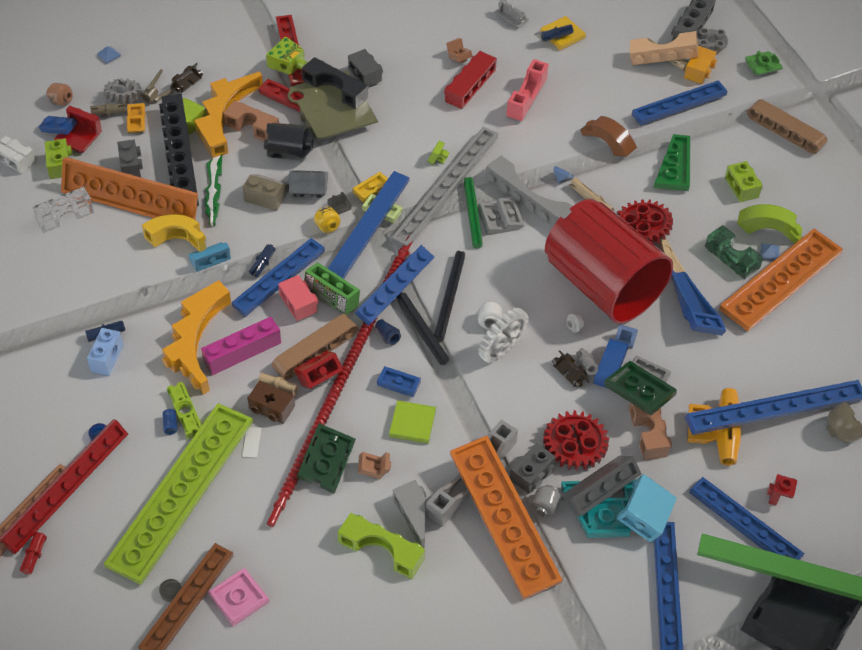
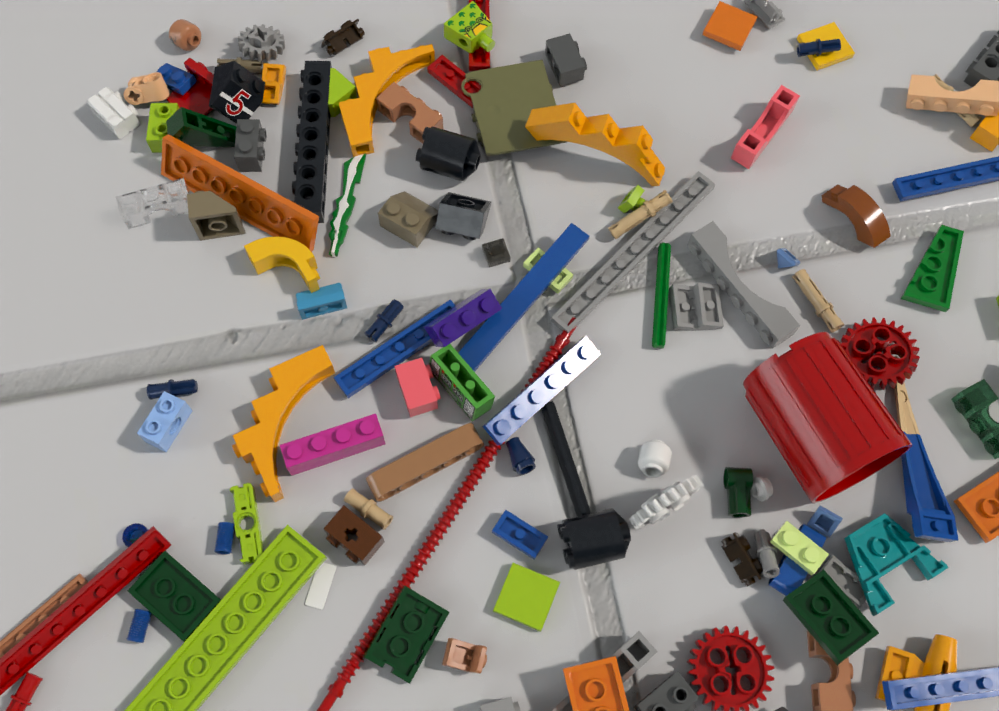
camera: 10 degrees right, 15 degrees up
(39, 132) = (146, 89): none -> light nougat piece
(90, 152) = (200, 129): none -> dark green slope
(111, 123) = (235, 91): none -> black slope
(114, 209) = (213, 216): none -> dark tan slope
(114, 491) = (139, 635): none -> blue piece
(138, 464) = (174, 595): none -> dark green plate
(151, 93) = (295, 50): dark tan plant -> none
(318, 369) = (421, 500): red brick -> none
(320, 73) = (505, 61): black arch -> none
(324, 244) = (463, 317): none -> dark purple brick
(326, 218) = (475, 275): yellow head -> none
(370, 186) = (540, 235): yellow plate -> none
(402, 106) = (599, 132): none -> light orange arch
(449, 296) = (608, 416): black axle -> none
(450, 155) = (645, 211): none -> tan pin
(455, 371) = (594, 538): none -> black cylinder
(457, 51) = (686, 53): nougat bracket -> none
(470, 79) = (694, 97): red brick -> none
(487, 29) = (729, 25): none -> orange tile
(557, 323) = (738, 485): none -> dark green piece
(609, 350) = (799, 548): none -> yellowish green plate
(673, 344) = (880, 549): none -> teal wing

